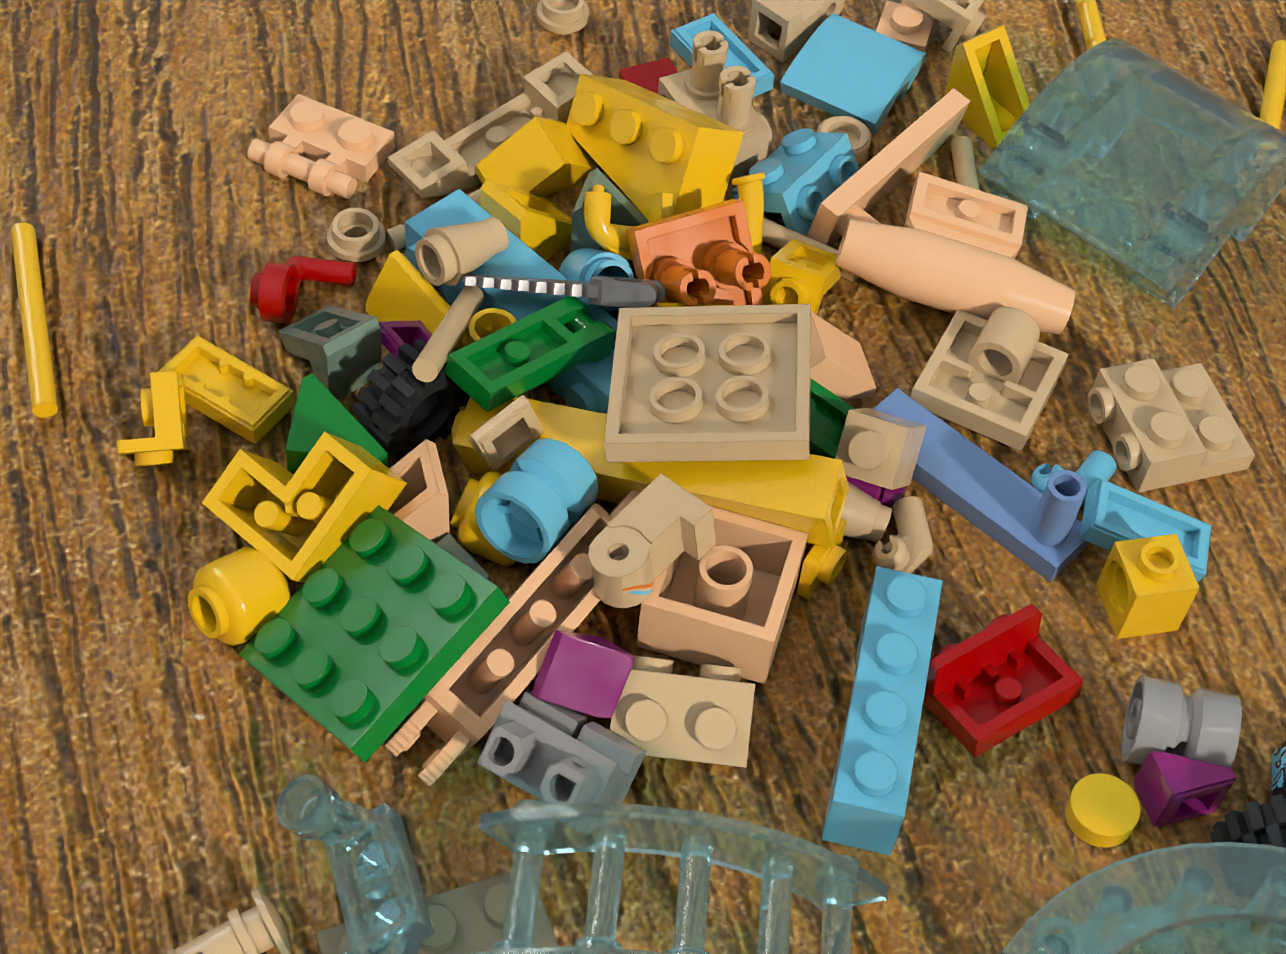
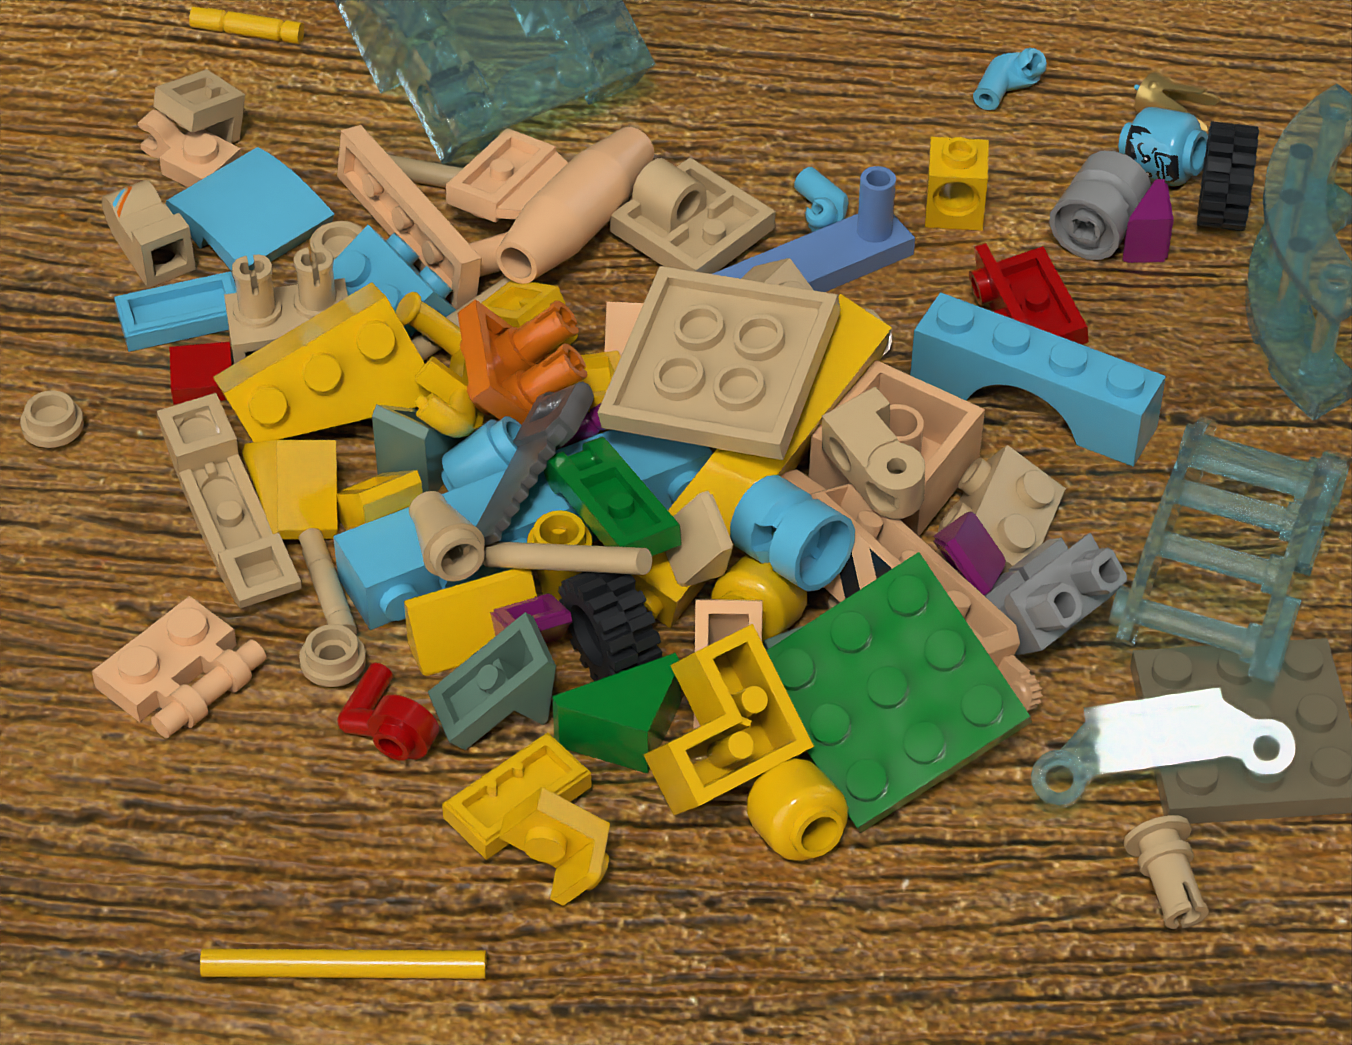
camera: 70 degrees left, 5 degrees down
(991, 80) = (322, 110): yellow slope -> none
(1102, 810) = (1151, 282): yellow tile -> none
(1122, 515) = (903, 156): medium azure tile -> none
(1167, 424) = (776, 126): tan plate -> none

